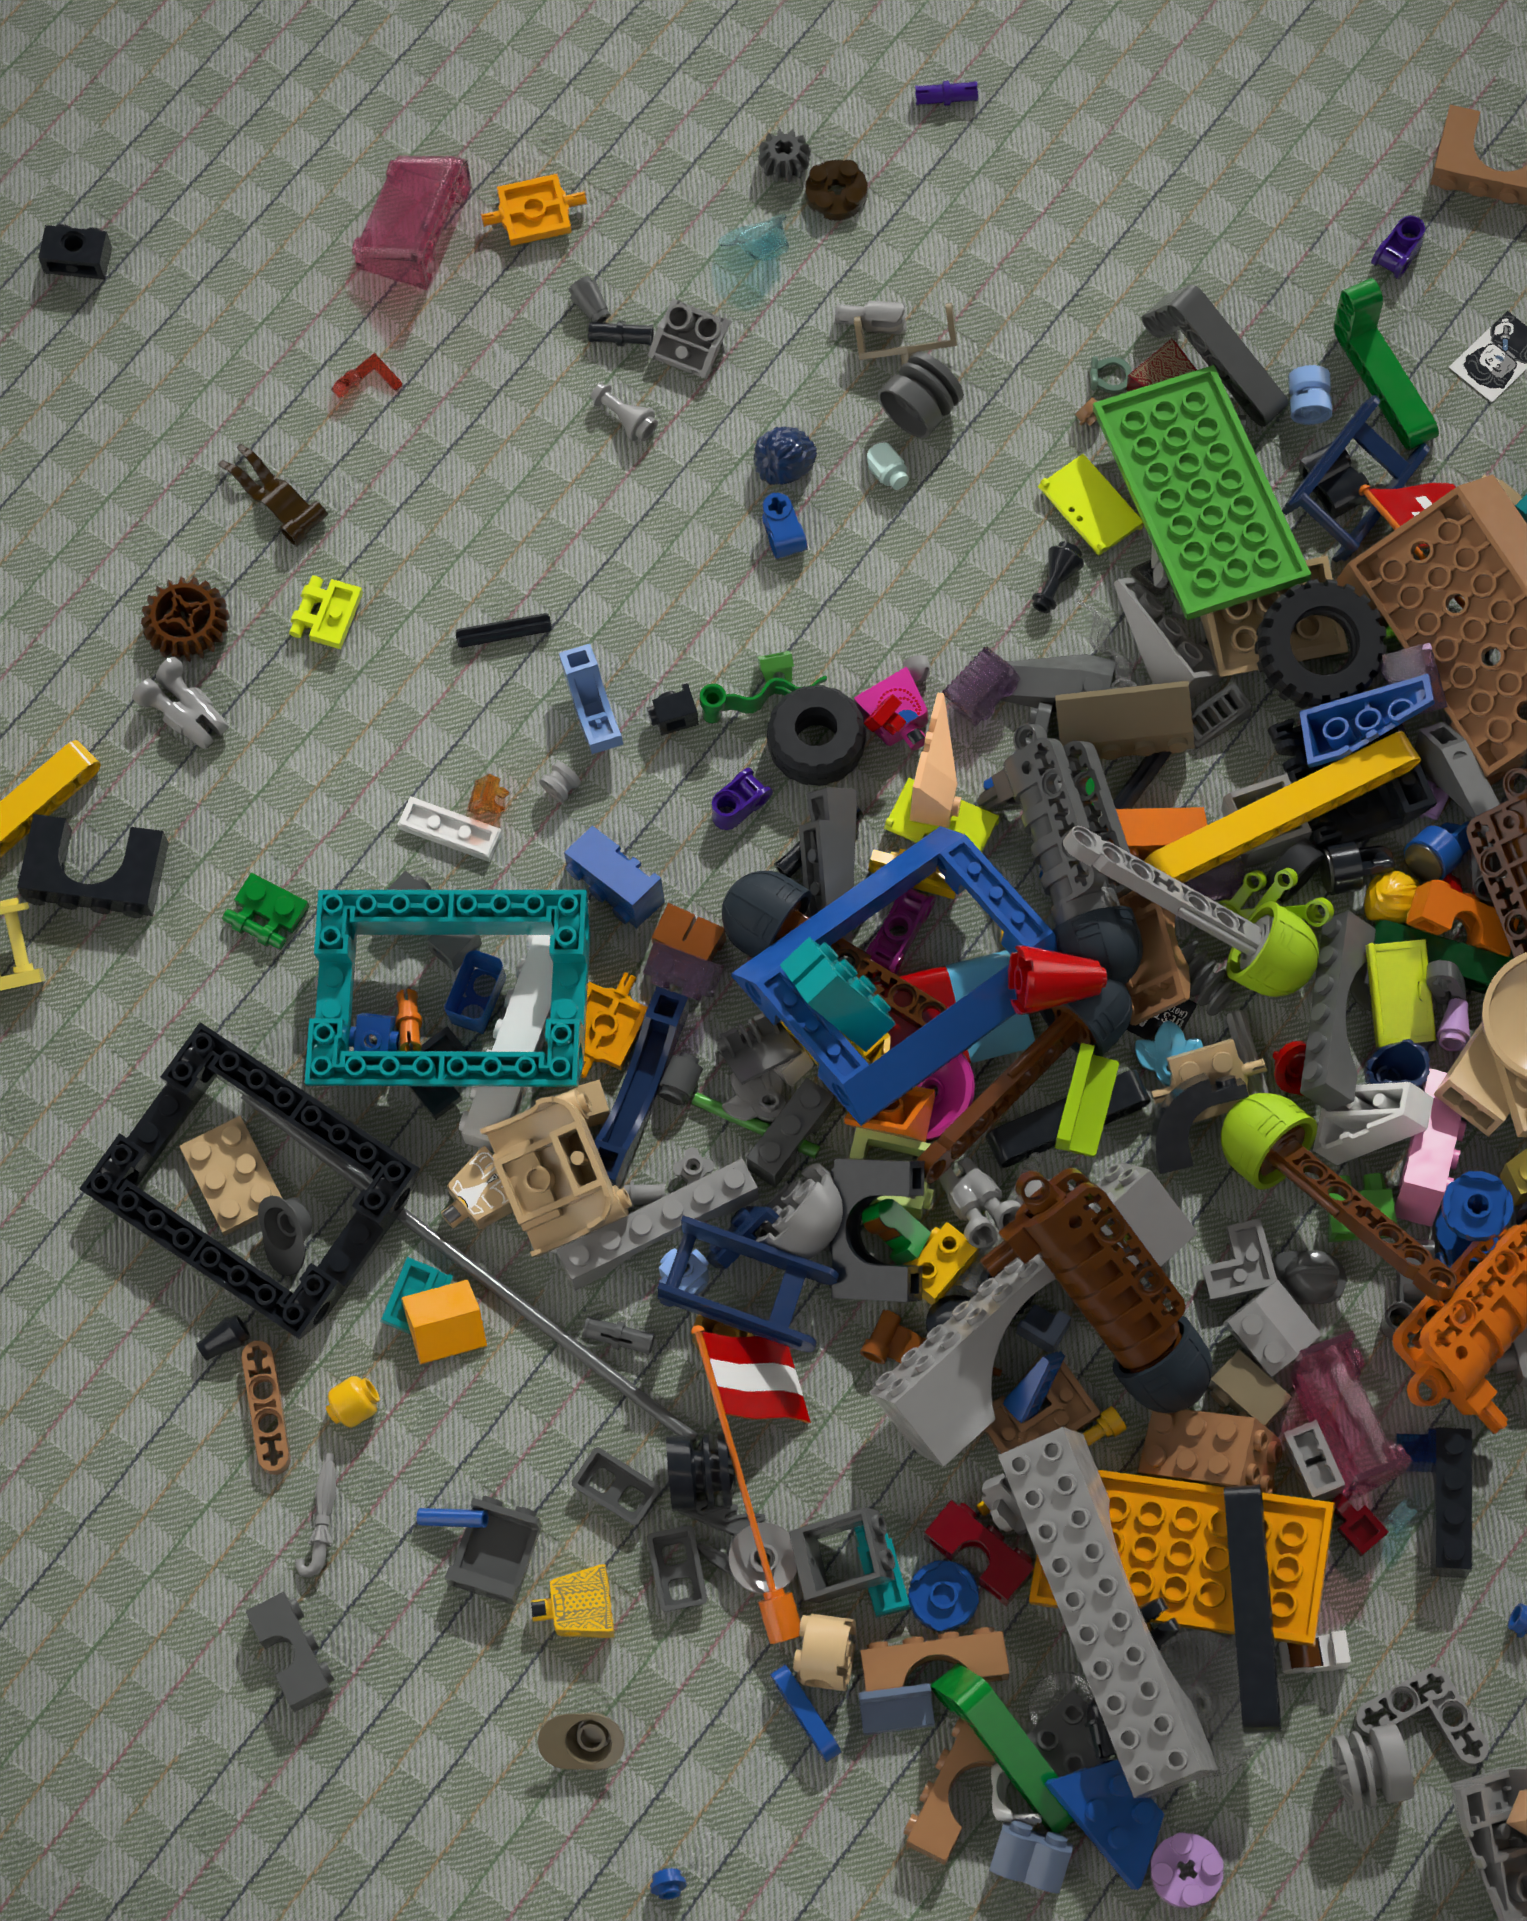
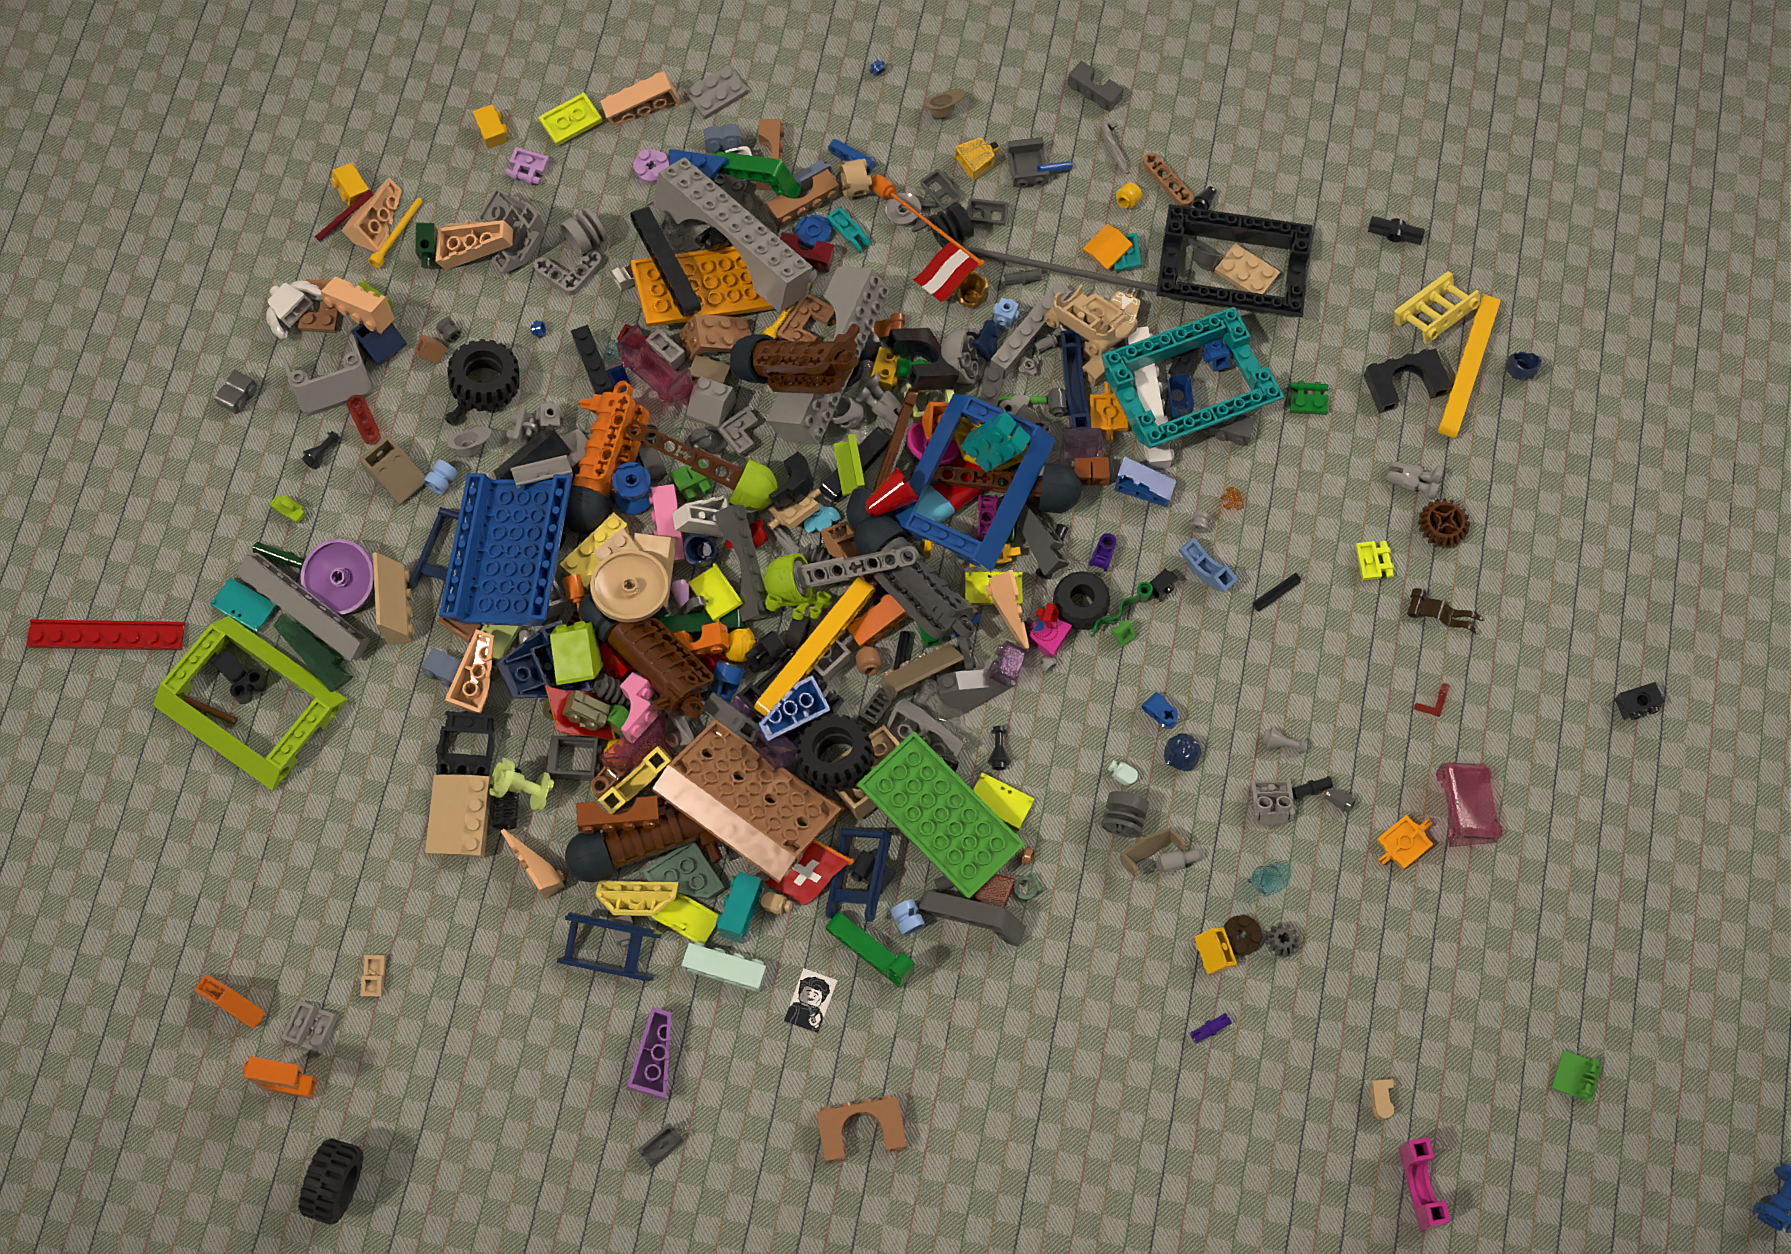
camera: 150 degrees right, 0 degrees up
(408, 1020) = (1205, 371): orange pin -> none
(450, 829) = (1242, 478): white tile -> none
(795, 1269) = (949, 310): dark blue piece -> none
(810, 1561) = (873, 206): dark grey window -> none
(888, 173) = (1215, 951): none -> yellow brick
(1031, 1392) = (814, 325): blue slope -> none
(1197, 786) = (868, 660): none -> medium nougat head
(1397, 250) = (896, 1037): dark purple piece -> none

